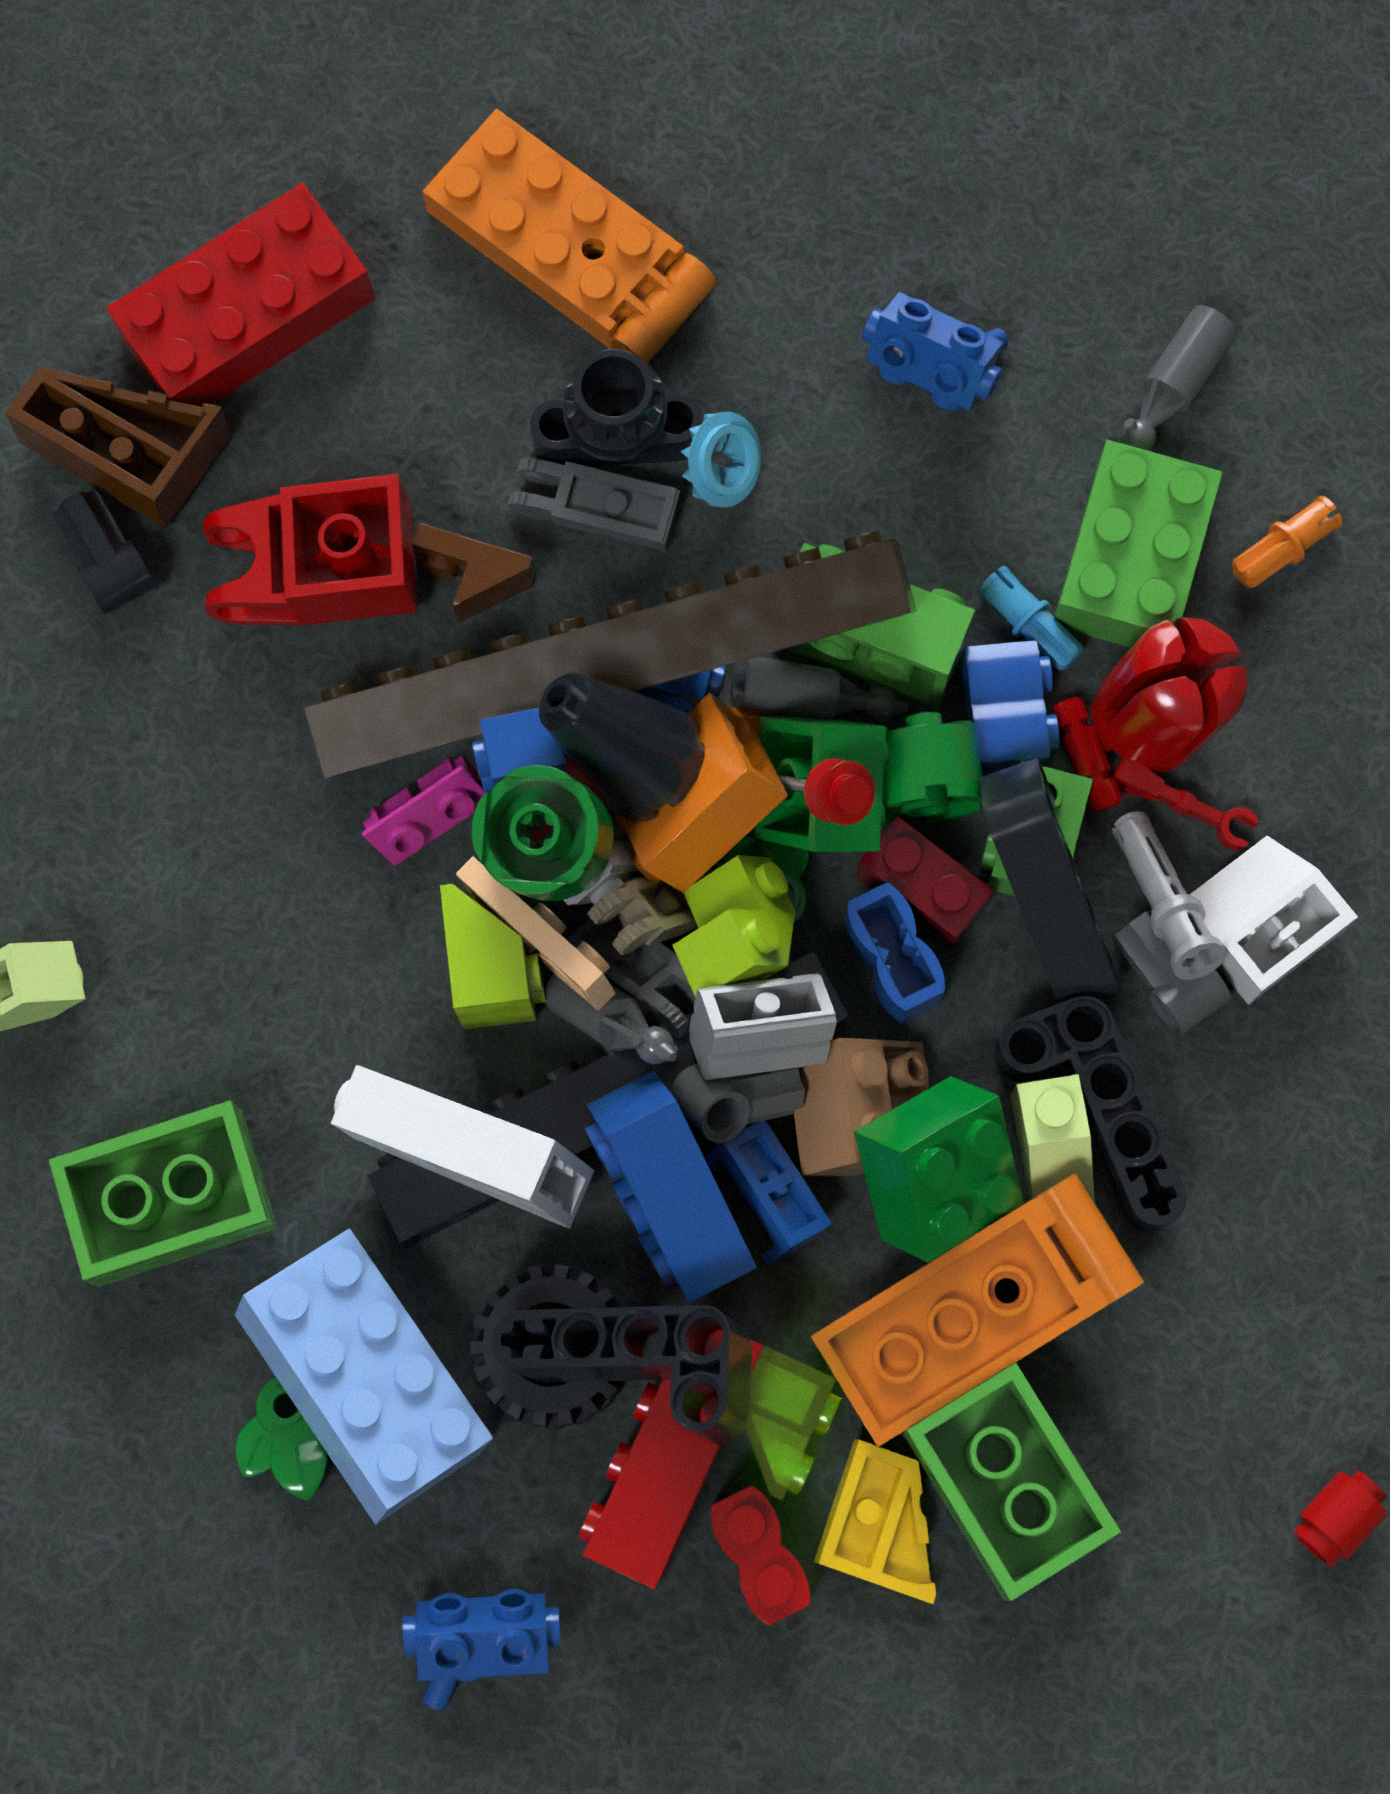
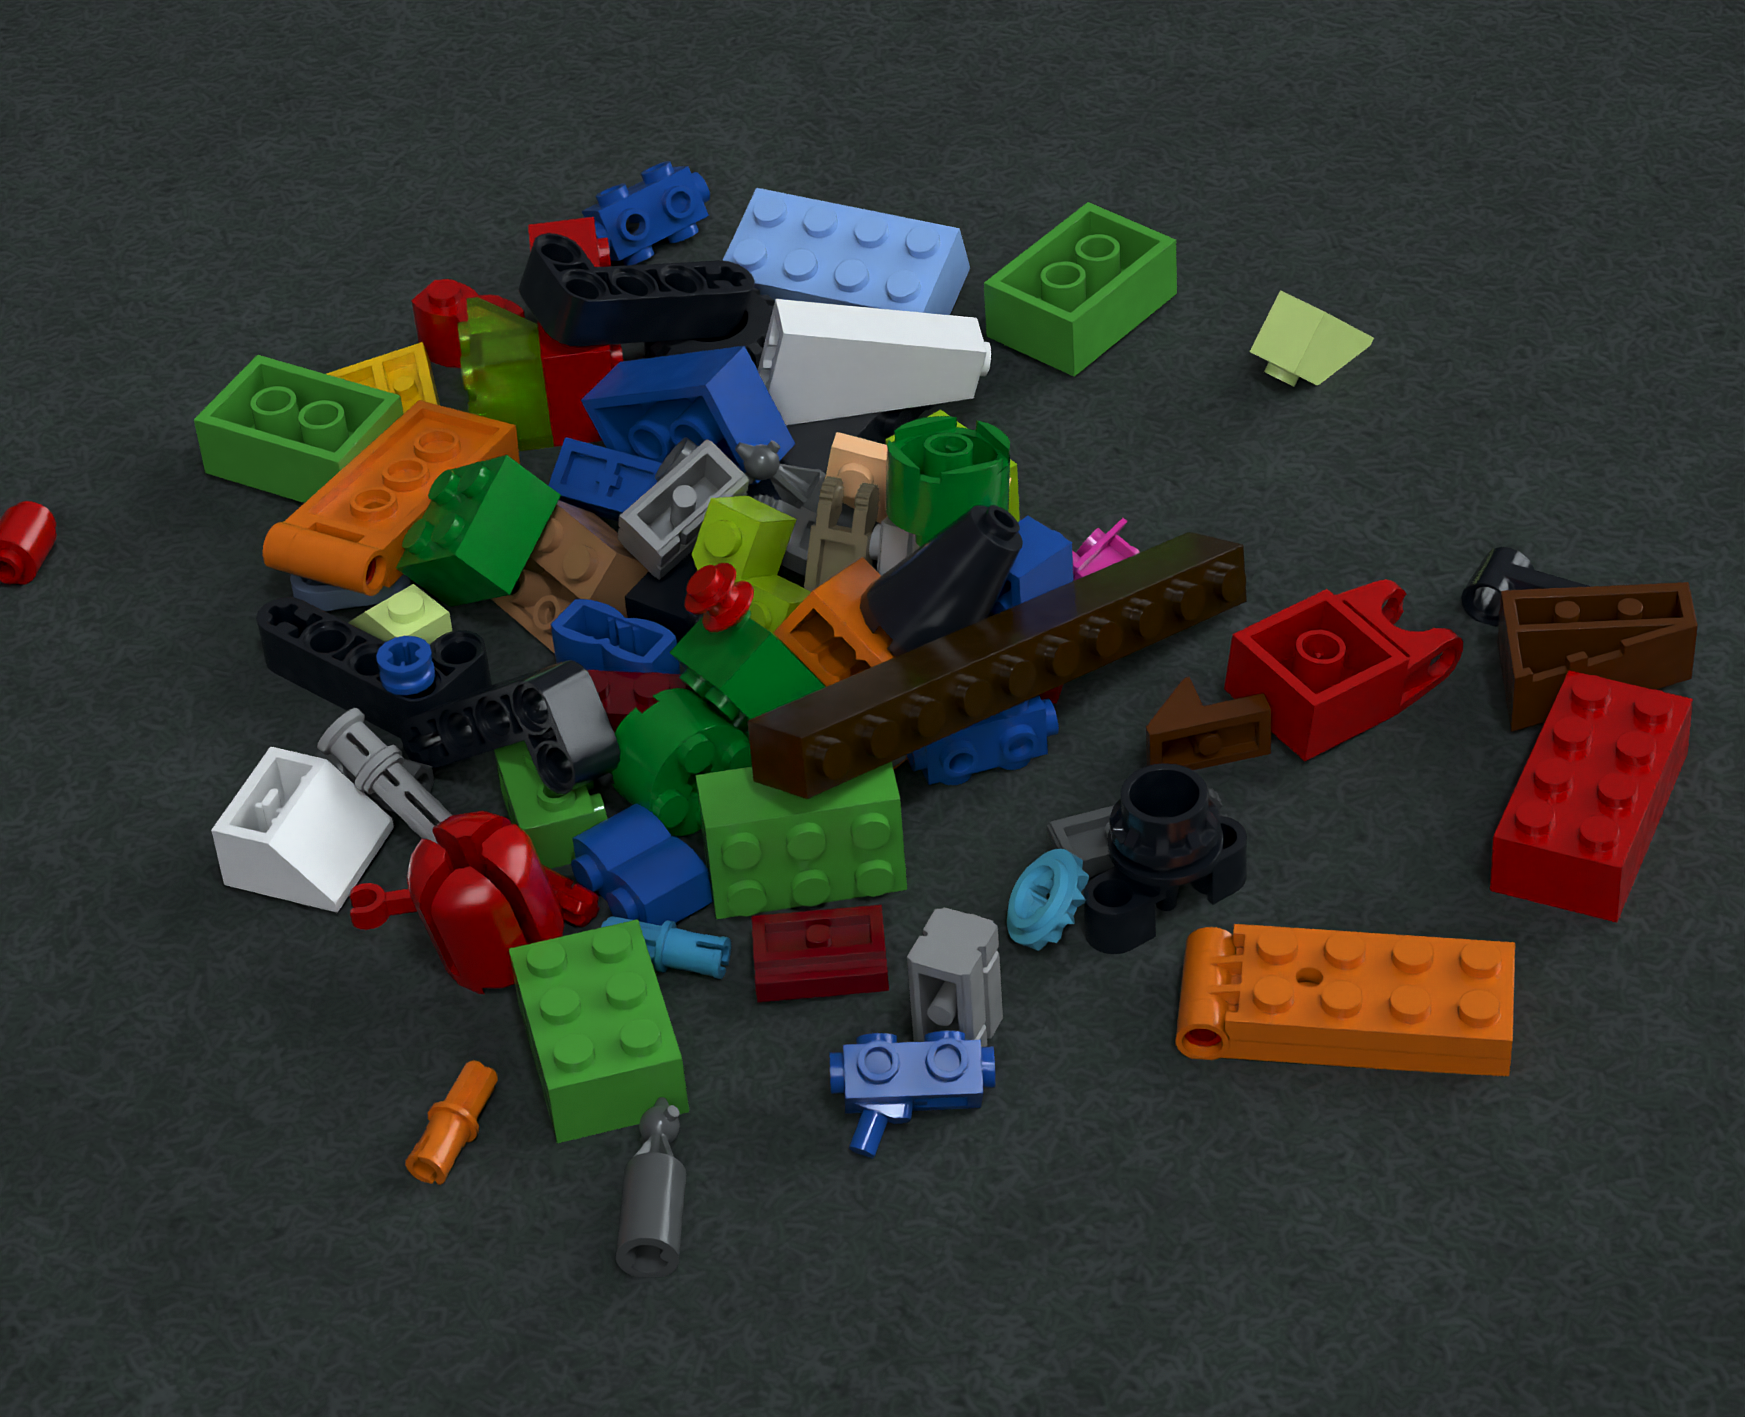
camera: 150 degrees right, 35 degrees down
(856, 392) = (956, 977): none -> light grey brick
(932, 531) = (819, 953): none -> dark red plate
(1107, 1042) = (405, 679): none -> blue bush

